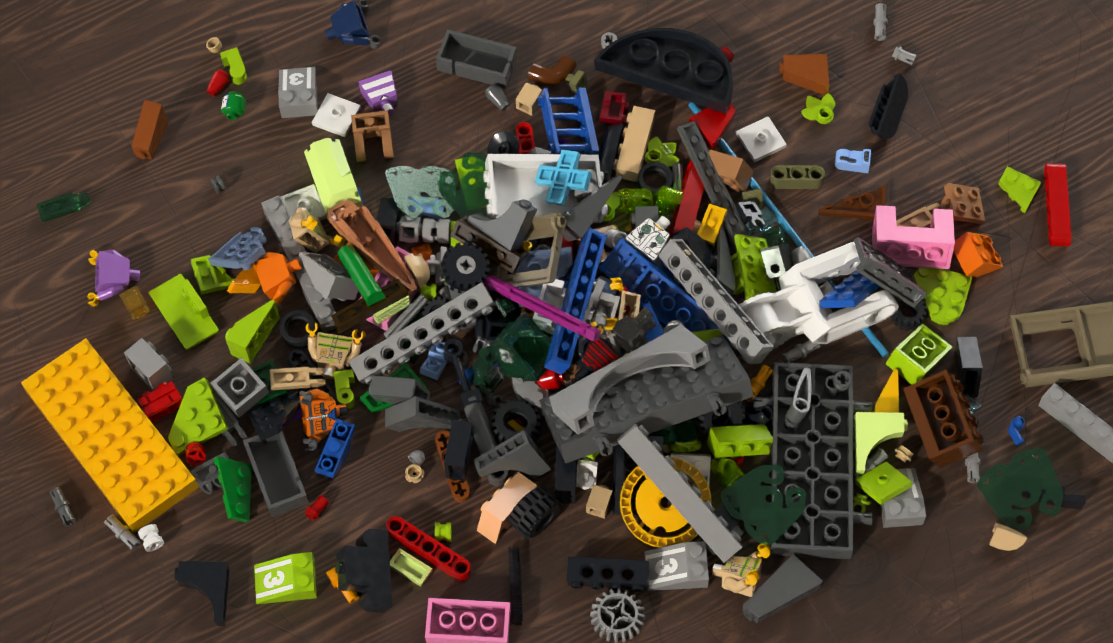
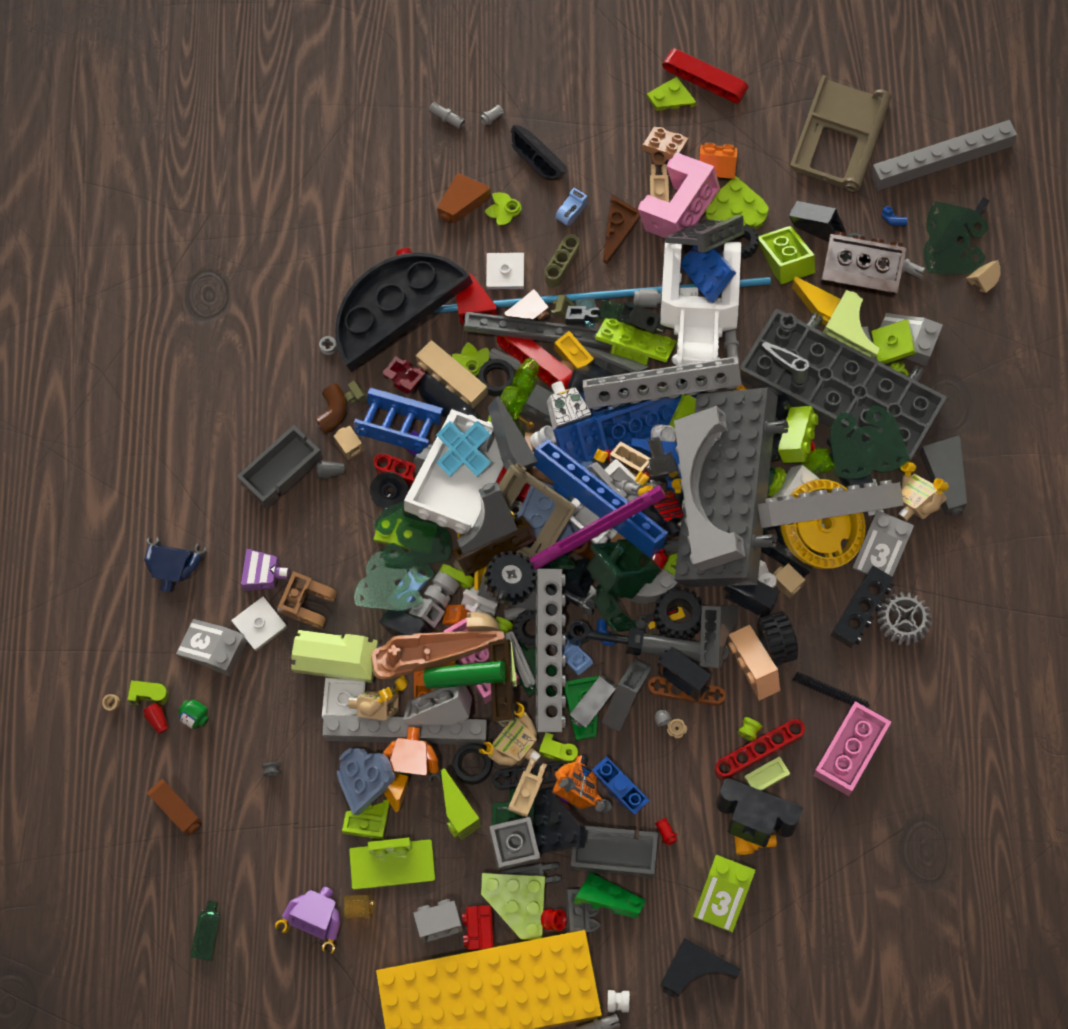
camera: 60 degrees left, 5 degrees up
(903, 454) = (870, 314): tan plate -> none

